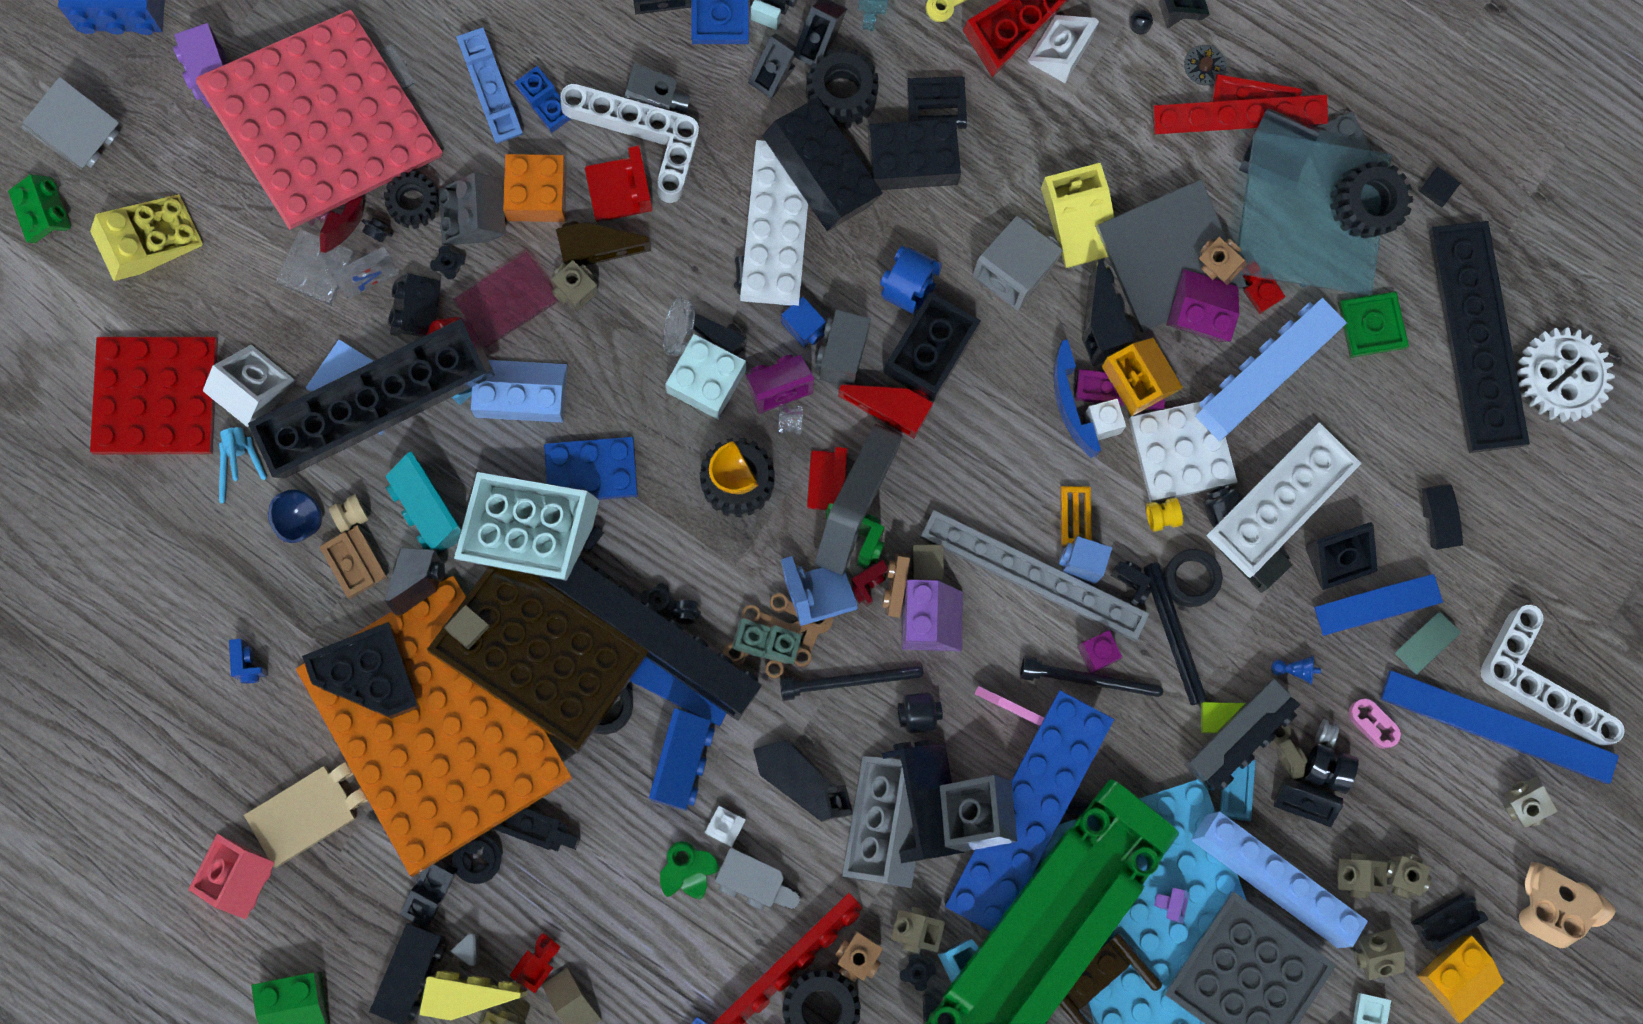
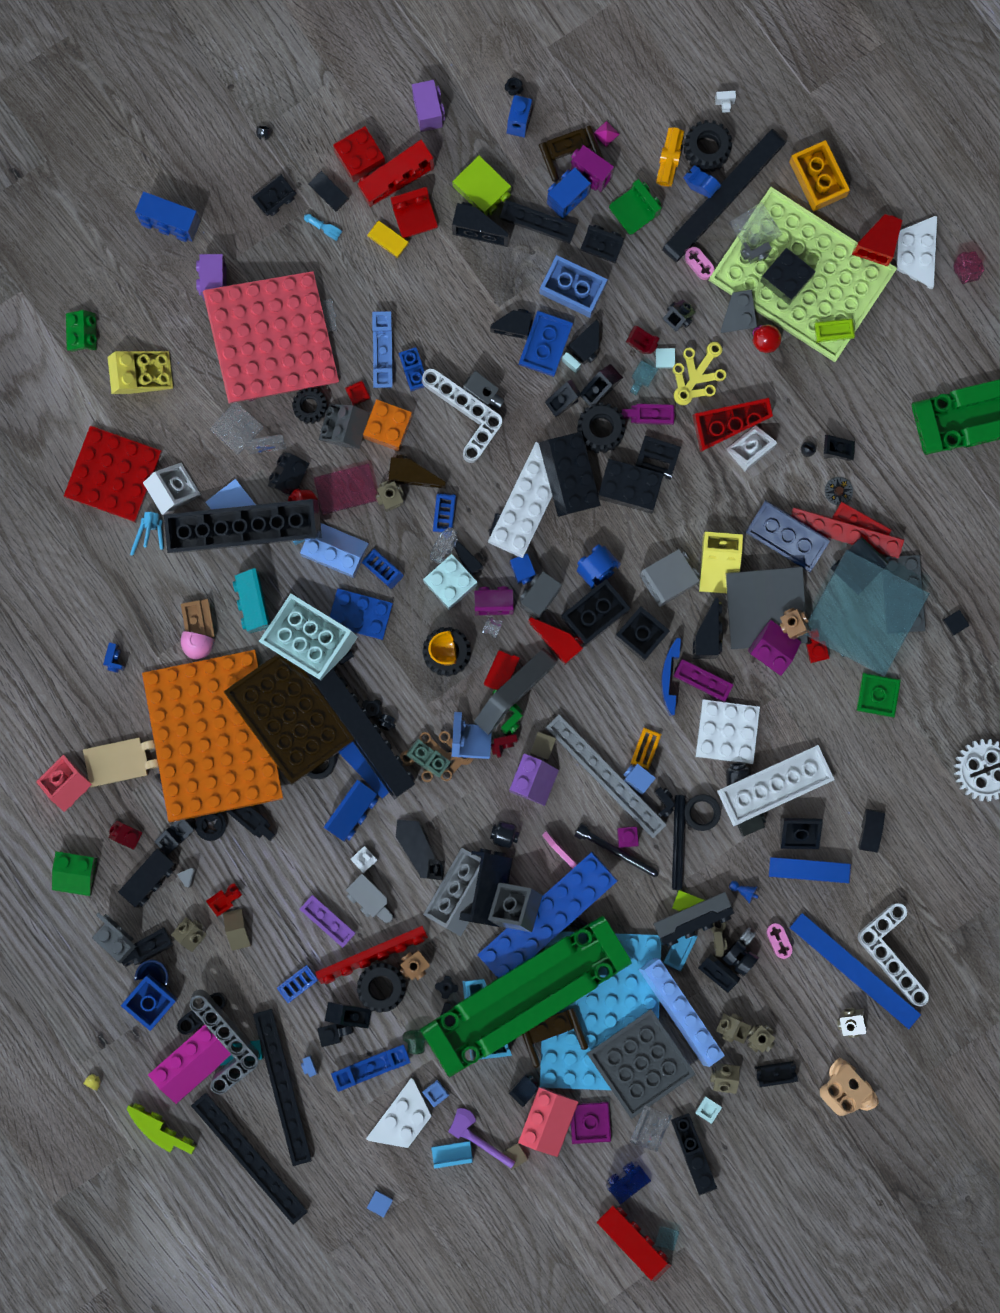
camera: 25 degrees right, 5 degrees up
(71, 125) = (117, 285): light grey slope -> none
(294, 516) = (172, 580): dark blue helmet -> none
(339, 227) = (259, 409): dark red slope -> none
(348, 513) = (205, 589): tan wheel -> none
(351, 920) = (124, 835): none -> dark red bracket
(362, 598) = (196, 645): none -> bright pink helmet
(365, 672) = (183, 691): black plate -> none
(376, 229) = (281, 417): black plate -> none
(414, 579) = (230, 644): black slope -> none
(451, 270) = (317, 448): black plate -> none
(453, 998) = (169, 902): light yellow slope -> none
(466, 627) = (251, 686): dark tan tile -> none
(475, 159) = (357, 393): none -> red tile
(617, 401) = (393, 580): none -> blue slope
(619, 187) = (439, 442): red bracket -> none
(655, 260) = (446, 496): none -> blue slope
(688, 875) = (332, 880): green plate -> none
(703, 938) = (327, 921): none -> medium lavender plate
(793, 687) = (434, 791): black piece -> none
(897, 573) = (521, 745): medium nougat plate -> none
(904, 47) = (650, 414): none -> magenta hinge
(912, 927) = (455, 962): dark tan brick -> none
(1010, 353) = (642, 634): none -> black brick
(1106, 419) = (685, 696): white brick -> none
(1141, 375) = (718, 677): light orange slope -> none
(1161, 147) = (788, 536): none -> dark blue tile
(1164, 514) = (699, 767): yellow wheel -> none
(1175, 904) = (613, 1004): medium lavender tile -> none
(1269, 370) = (800, 701): light blue brick -> none
(1392, 193) = (918, 622): black tyre -> none
(1428, 643) = (831, 904): sand green slope -> none
(1462, 977) = (770, 1110): light orange slope -> none
(1478, 337) = (941, 726): black plate -> none

